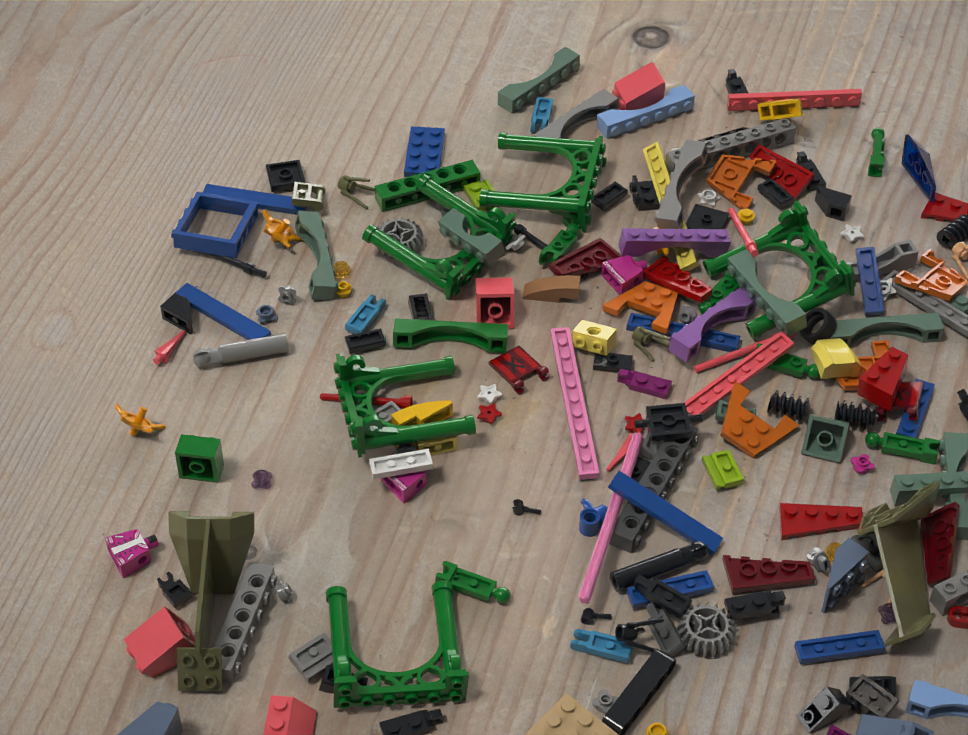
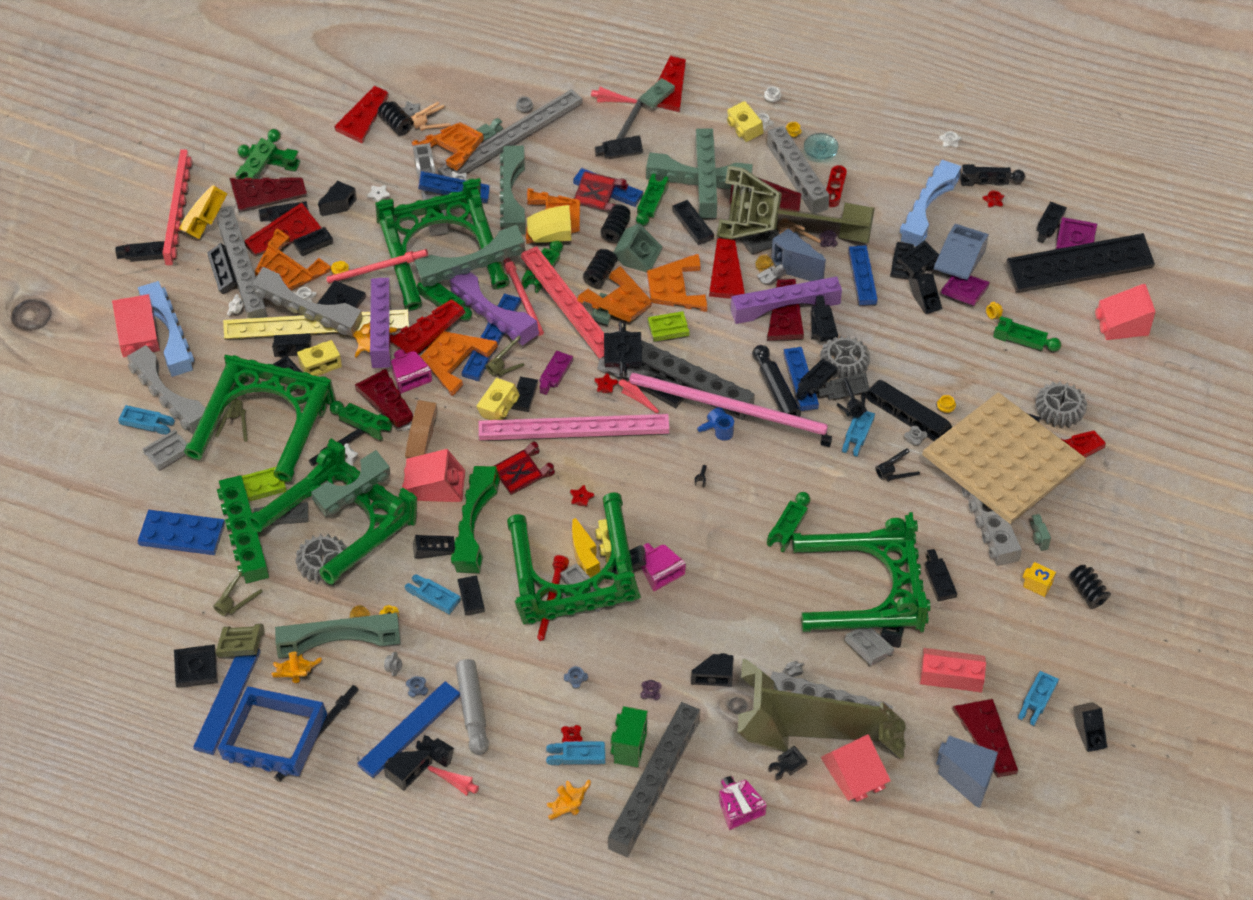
camera: 85 degrees left, 5 degrees up
(158, 483) = (654, 780): none -> dark grey brick
(192, 424) = (576, 753): none -> dark azure hinge
(193, 332) = (440, 751): none -> black plate
(212, 424) = (571, 730): none -> red plate
(276, 422) = (575, 671): none -> sand blue plate
(281, 527) = (714, 671): none -> black slope
(400, 464) = (658, 559): white plate -> none
(489, 398) = (555, 499): white plate -> none
(509, 126) = (165, 449): none -> light grey plate
(517, 95) = (67, 394): sand green arch -> none
(552, 673) = (886, 469): none -> black plant
(560, 164) = (234, 410): none -> olive plant
(627, 211) = (319, 358): none -> light yellow brick
(664, 511) = (723, 367): blue tile -> none
(687, 314) = (473, 327): light grey plate -> none
(785, 469) = (668, 285): none -> orange wing
(798, 602) = (752, 305): none -> medium lavender arch
(825, 331) = (505, 218): black tyre -> none
(828, 153) = (257, 193): none -> dark red wing
(862, 464) = (668, 231): dark pink plate -> none
(863, 139) = (259, 156): none -> green plate
(877, 485) = (693, 222): none -> black plate
(884, 378) = (584, 192): red wedge -> none
(918, 165) = (304, 127): clear blue wedge -> none

